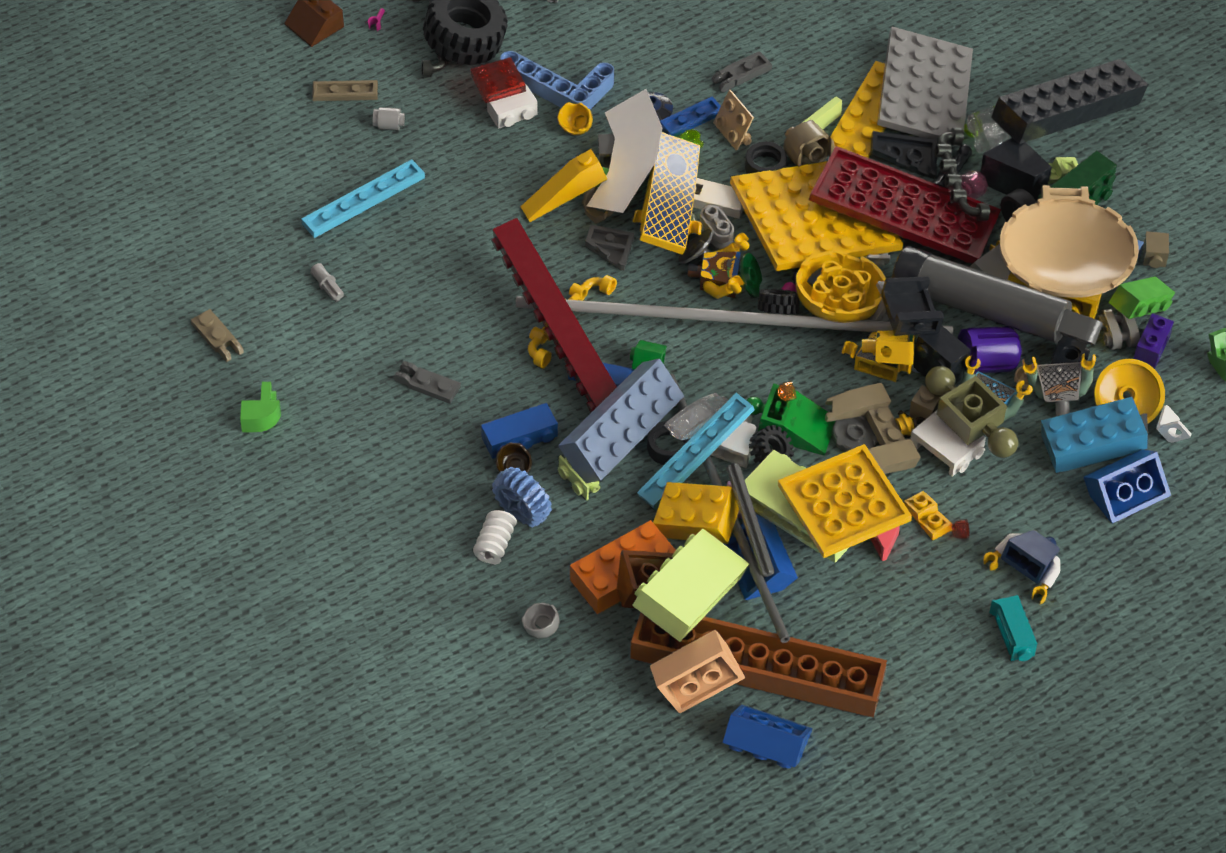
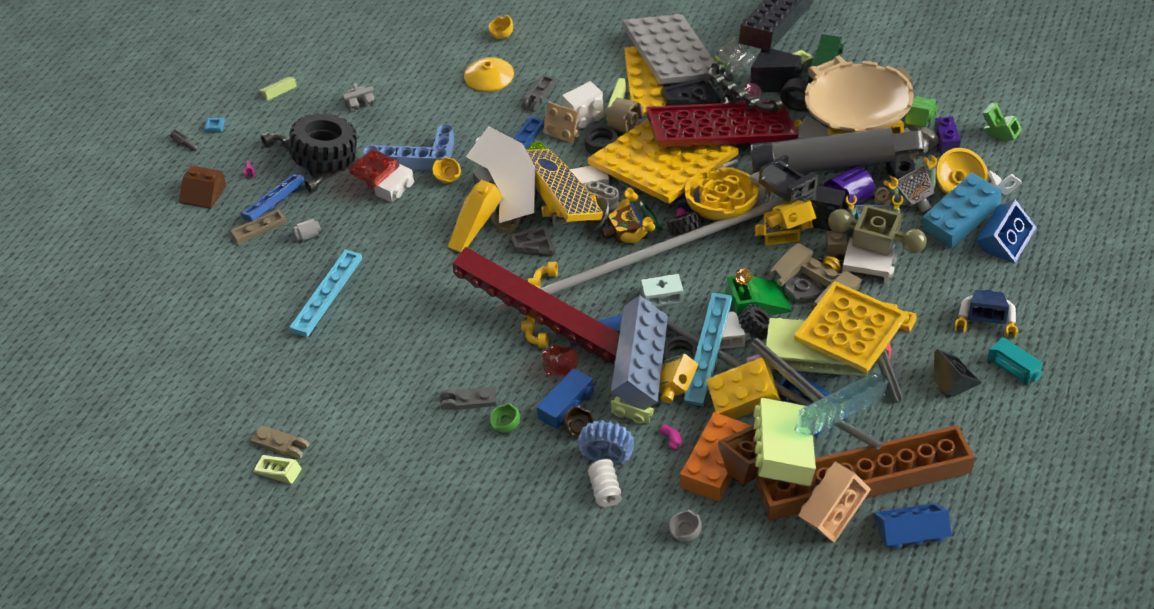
camera: 25 degrees left, 5 degrees down
(203, 373) = (287, 475): none -> yellowish green slope
(260, 414) = (357, 482): bright green brick -> none
(327, 282) = (339, 363): light grey axle -> none
(386, 62) = (277, 194): none -> blue plate
(447, 417) = (505, 415): none -> bright green hair
(539, 392) = (562, 364): none -> clear red hair
(600, 524) = (673, 435): none -> dark pink arm
(641, 464) = (676, 376): none -> yellow torso
(647, 351) = (617, 301): green brick -> none
(693, 417) = (692, 324): clear slope -> none
(702, 365) = (663, 290): none -> light aqua brick
(704, 24) = (488, 74): none -> yellow dish
(772, 111) = (587, 101): none -> white brick
(780, 577) = (841, 404): none -> clear light blue beam
(866, 572) = (886, 369): none -> dark grey axle
(936, 606) = (952, 374): none -> black slope
(960, 529) = (924, 314): clear red hinge -> none

